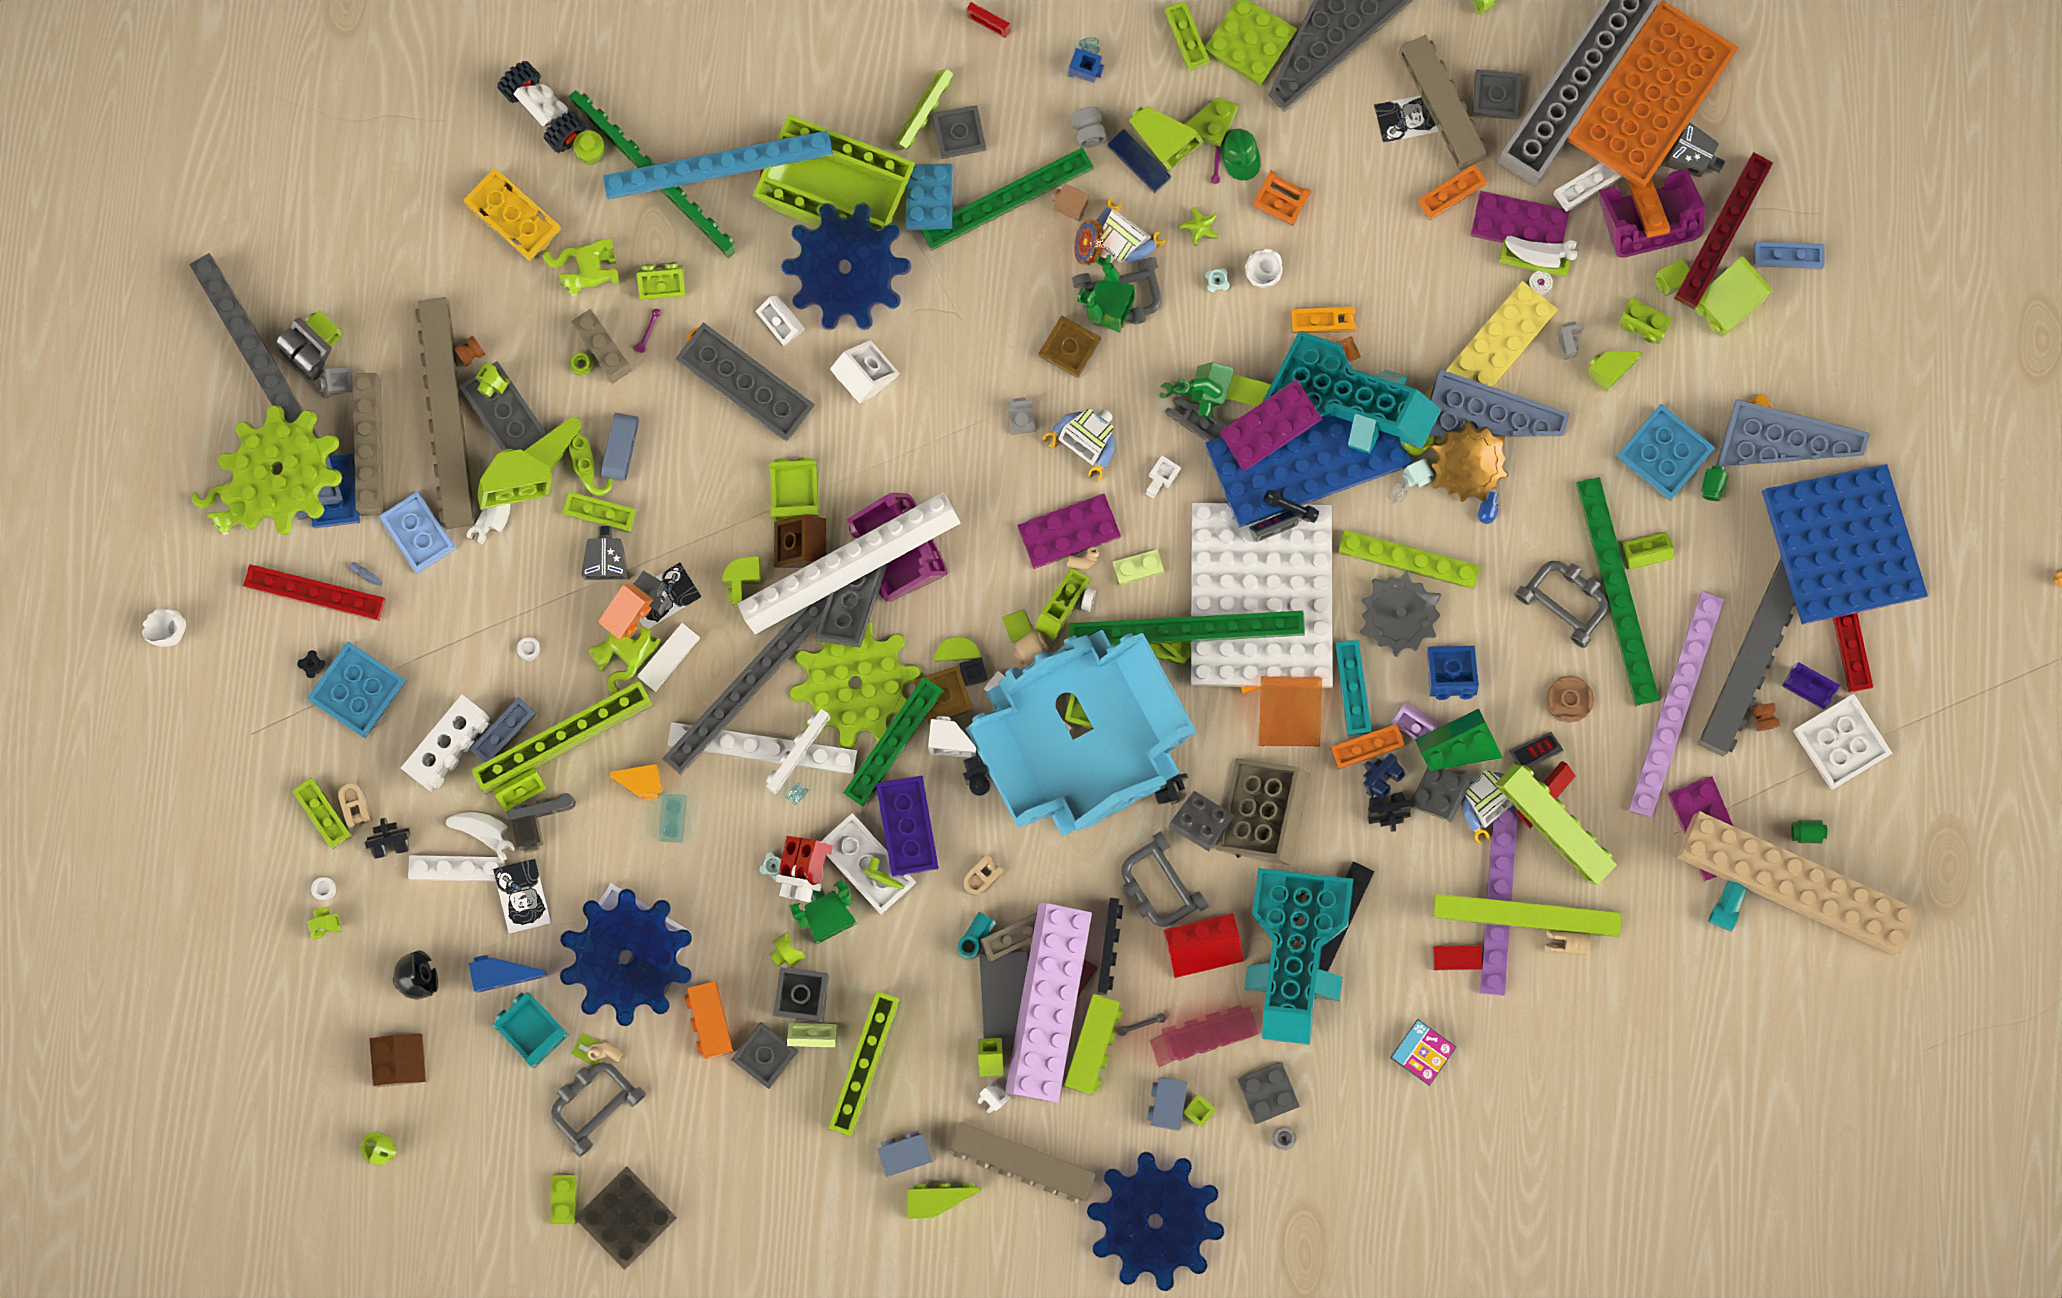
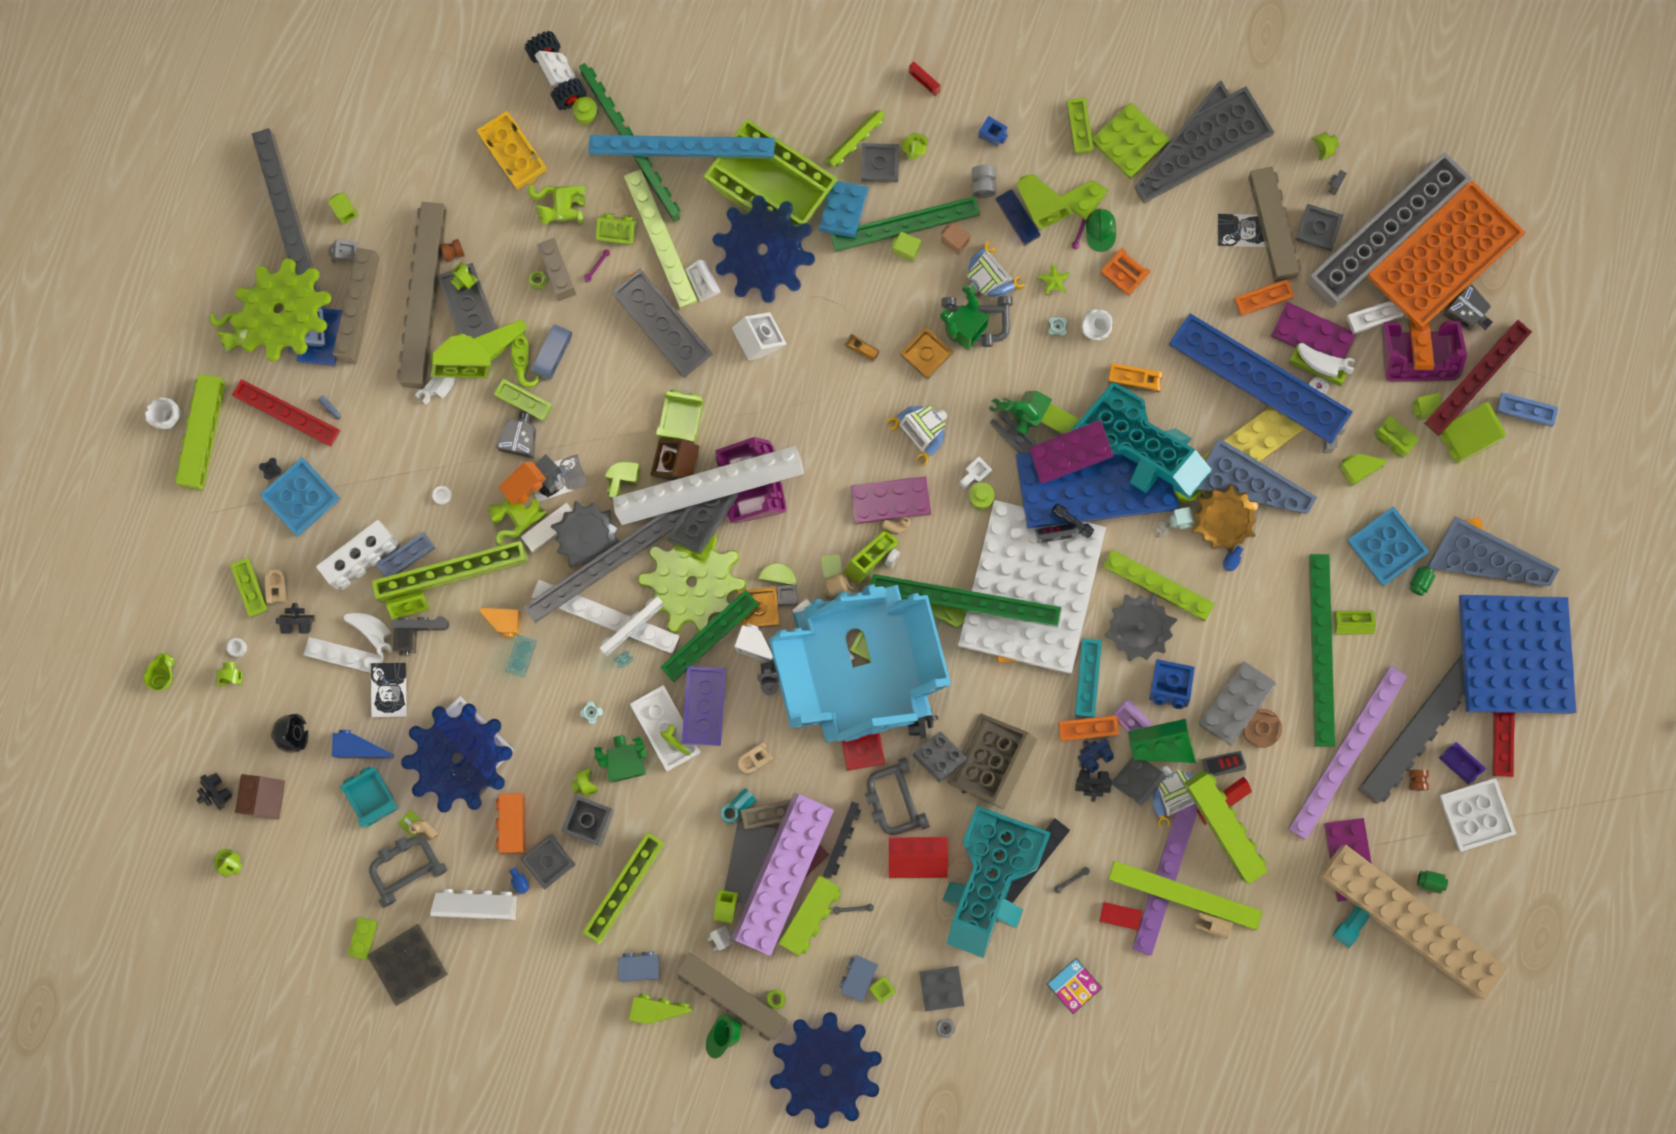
camera: 20 degrees right, 0 degrees up
(215, 640) = (200, 432): none -> lime brick
(237, 940) = (159, 672): none -> lime hair
(304, 349) = (324, 219): flat silver plate -> none
(331, 1061) = (209, 784): none -> black hips
(417, 532) = (377, 383): light blue tile -> none
(690, 1128) = (474, 905): none -> white slope
(714, 655) = (585, 533): none -> dark grey piece
(717, 281) = (660, 239): none -> yellowish green plate
(735, 1087) = (519, 881): none -> blue cylinder
(802, 867) = (612, 719): red hips -> none
(812, 1035) = (589, 854): yellowish green plate -> none
(994, 359) = (864, 349): none -> pearl gold bar
(995, 105) = (913, 147): none -> lime piece
(1015, 225) = (906, 246): none -> lime brick
(1021, 416) = (874, 399): light grey bracket -> none
(1023, 1210) = (722, 1035): none -> green piece
(1083, 1149) = (771, 1004): none -> lime plate
(1088, 242) = (961, 272): clear orange tile -> none
(1089, 45) = (1000, 116): clear light blue bush -> none
(1109, 837) = (863, 752): none -> red tile
(1138, 567) = (939, 541): yellowish green plate -> none
(1175, 502) = (981, 496): none -> lime piece
(1204, 1035) = (901, 930): clear pink wedge -> none
(1290, 711) = (1032, 685): clear orange piece -> none
(1349, 348) = (1150, 405): clear orange plate -> none
(1403, 915) = (1085, 871): none -> dark grey hinge
(1471, 288) = (1260, 378): none -> blue plate
(1504, 36) = (1336, 181): none -> dark grey plate
(1534, 677) = (1237, 703): none -> light grey plate
(1572, 574) = (1288, 628): dark grey bar -> none

